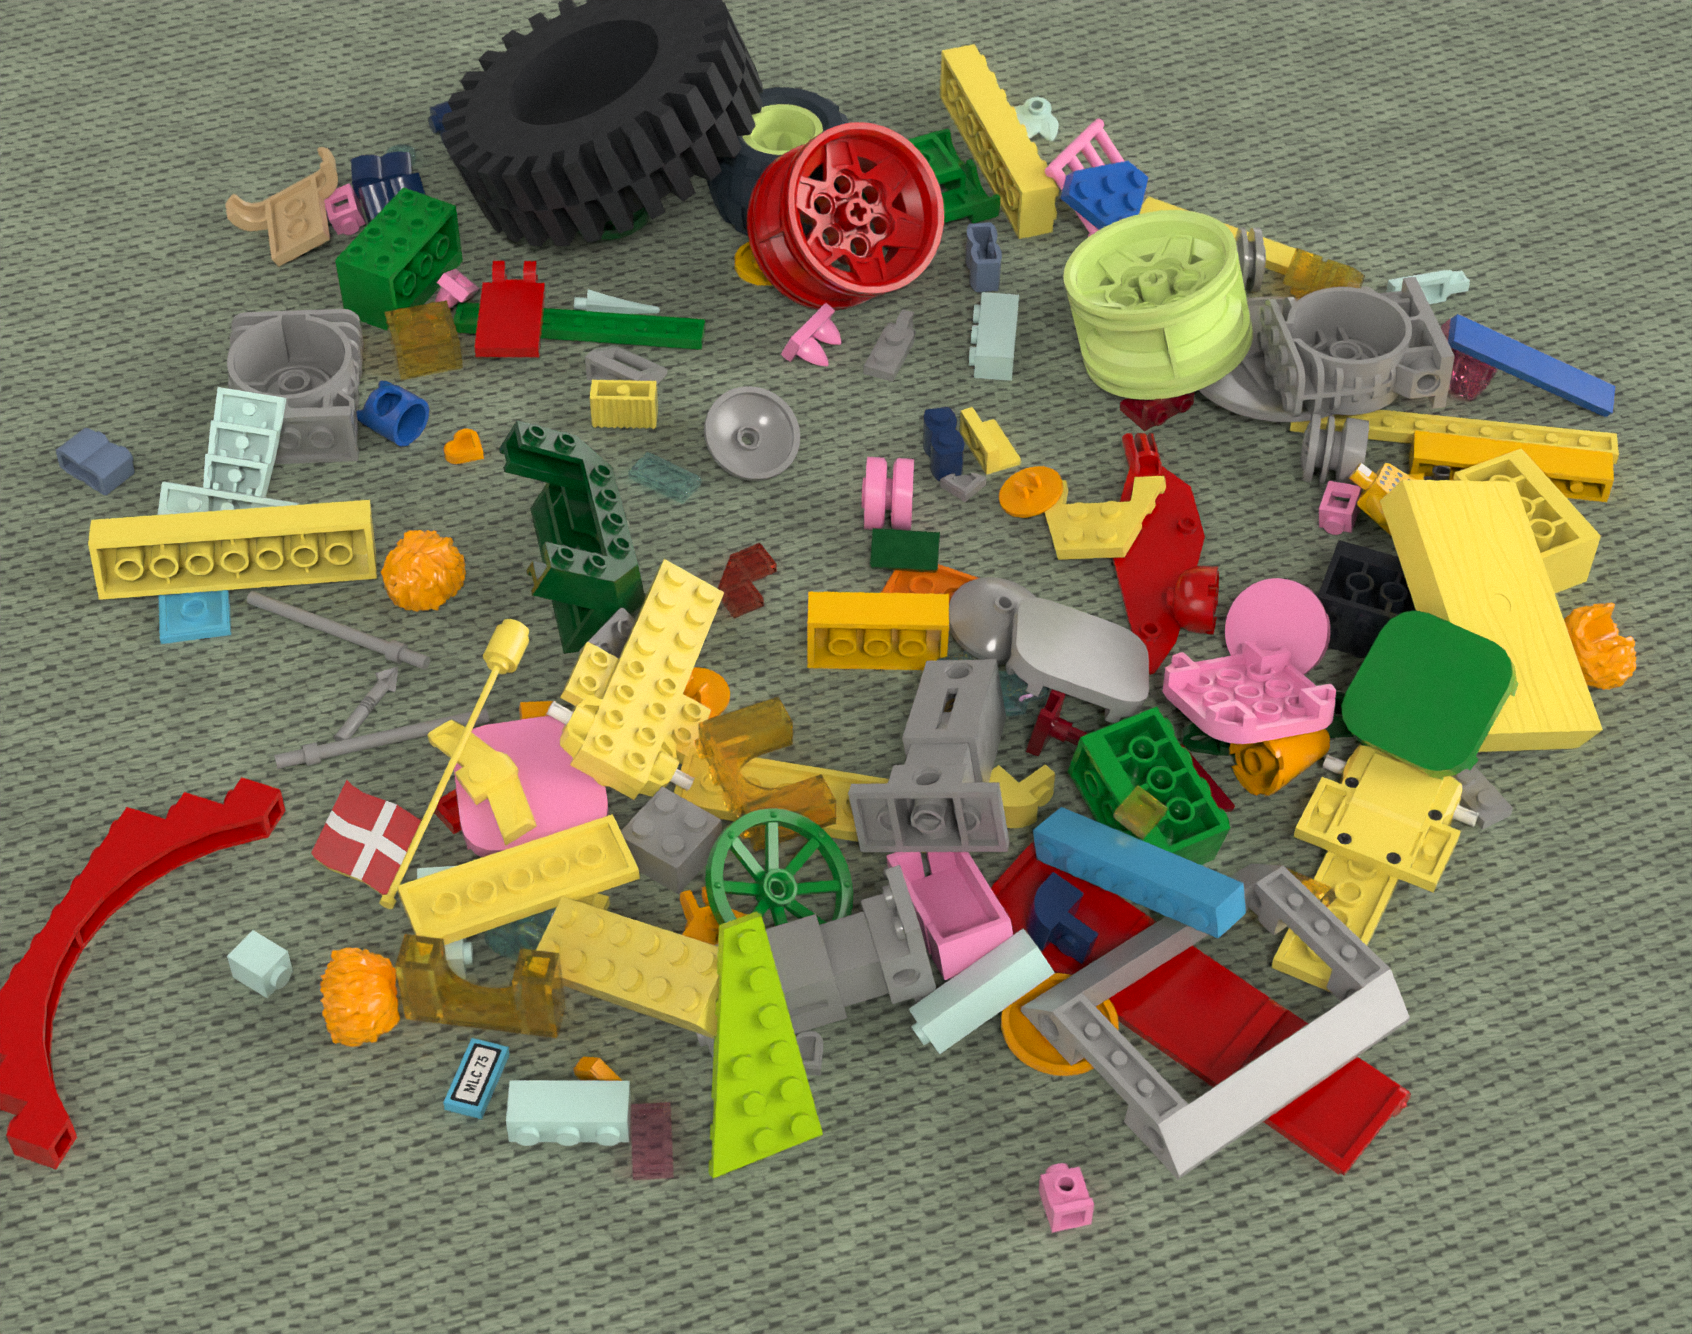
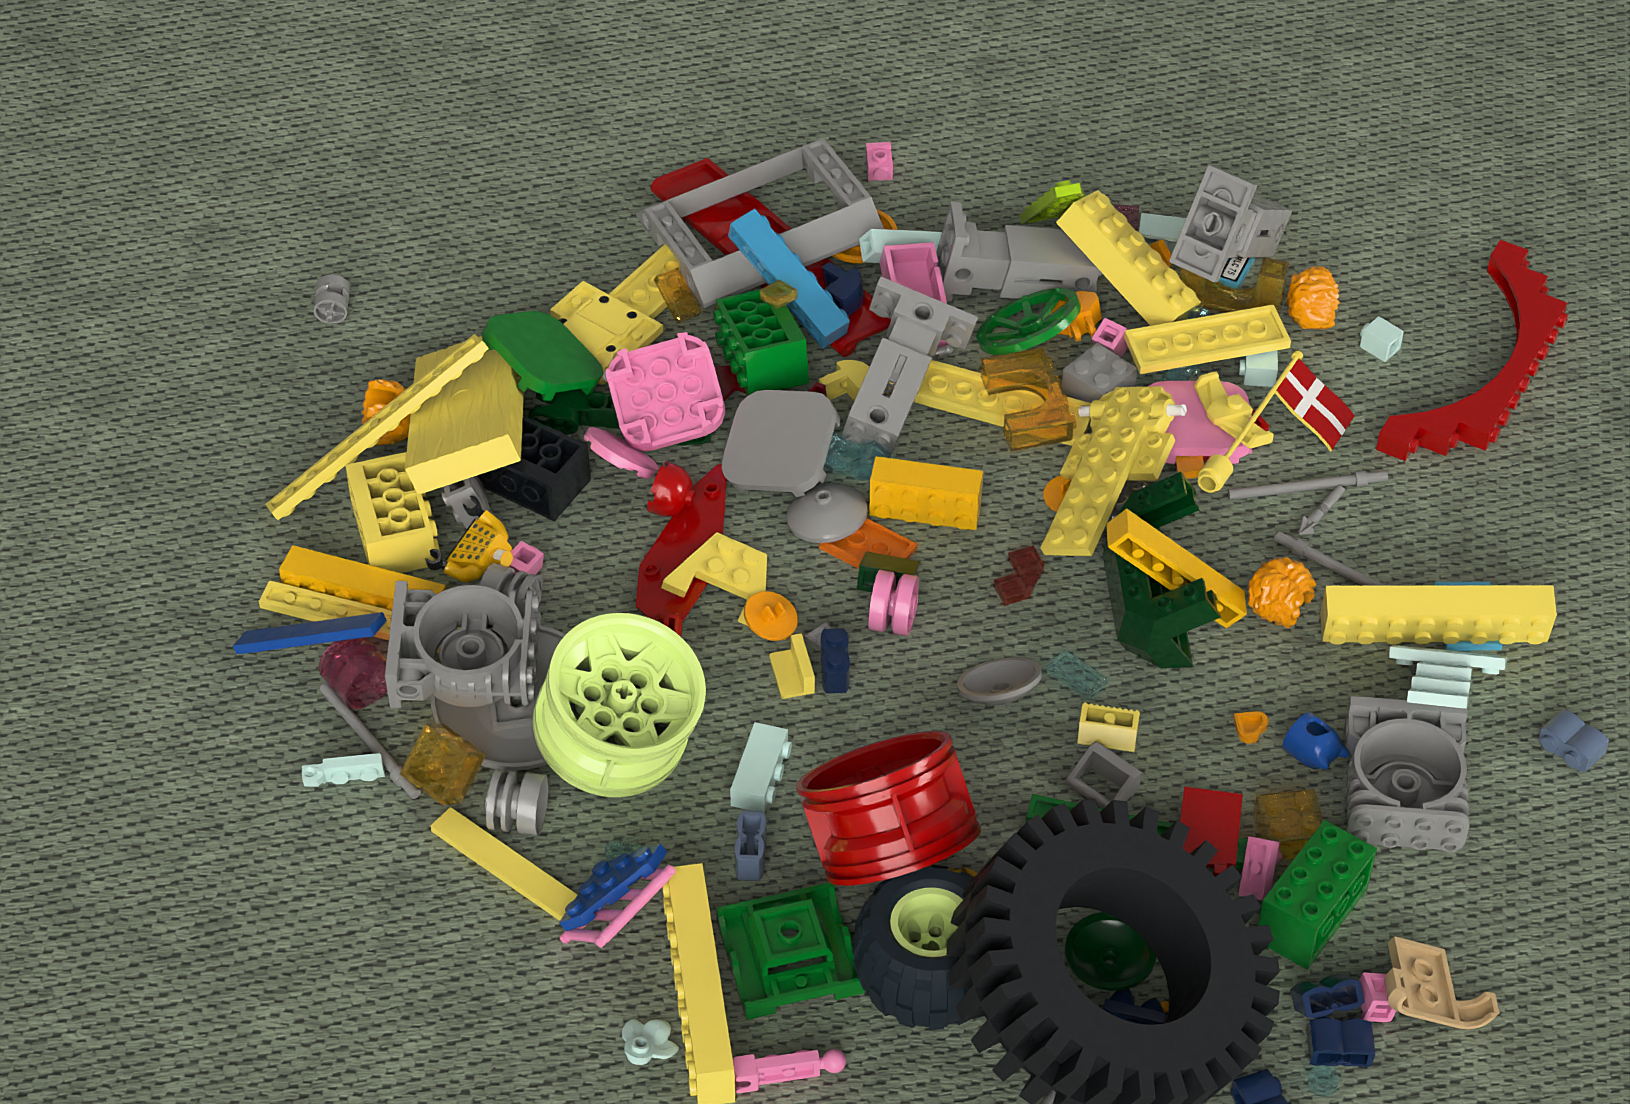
camera: 170 degrees left, 0 degrees up
(474, 1026) = (1227, 222): none -> light grey brick
(554, 510) = (1171, 563): none -> yellow brick
(658, 892) = (1111, 336): none -> bright pink brick
(903, 105) = (779, 1068): none -> bright pink plate
(1584, 586) = (370, 432): none -> light yellow plate

